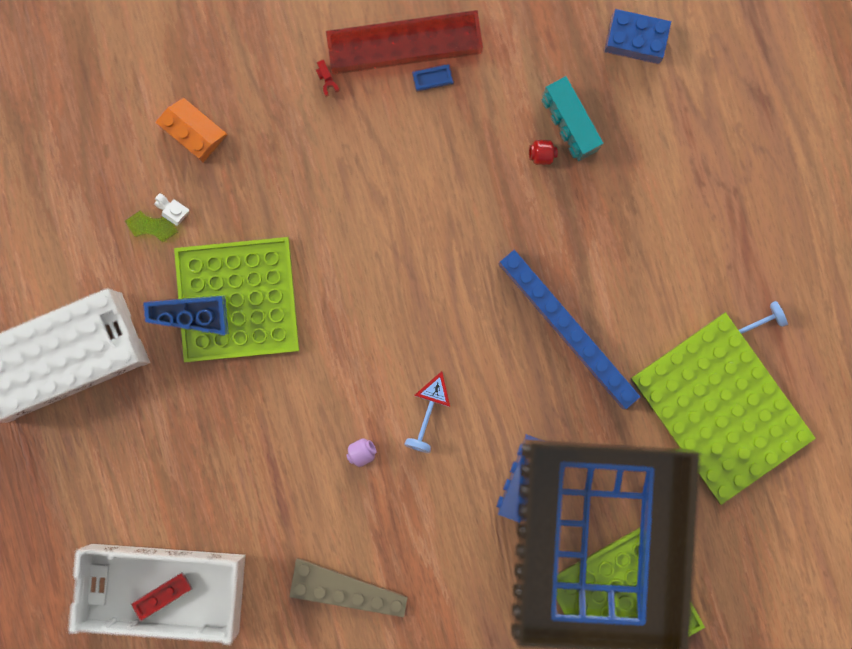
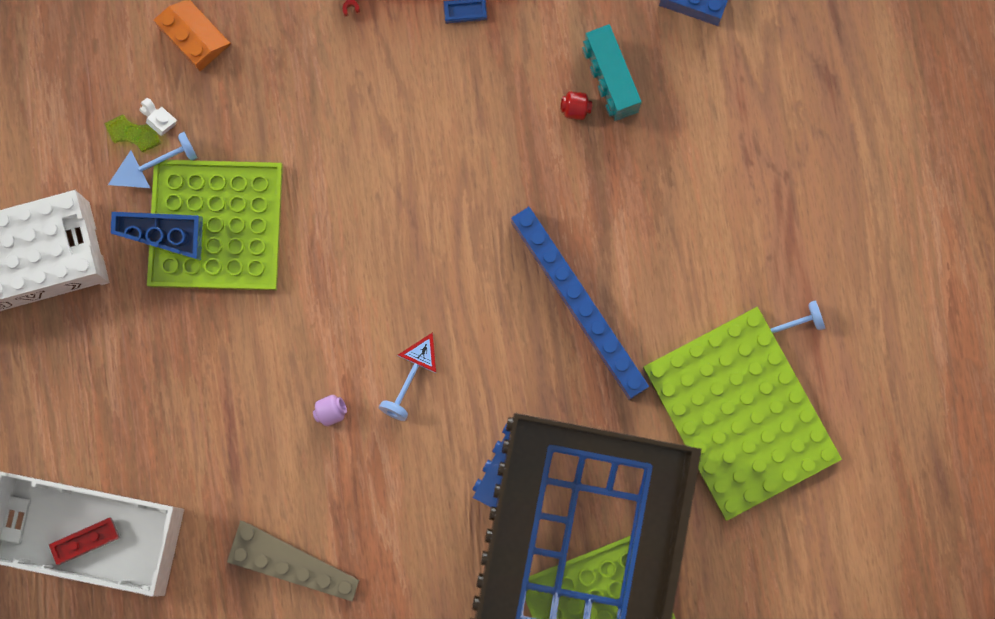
camera: 10 degrees right, 5 degrees down
(155, 264) = (131, 174): none -> light blue piece

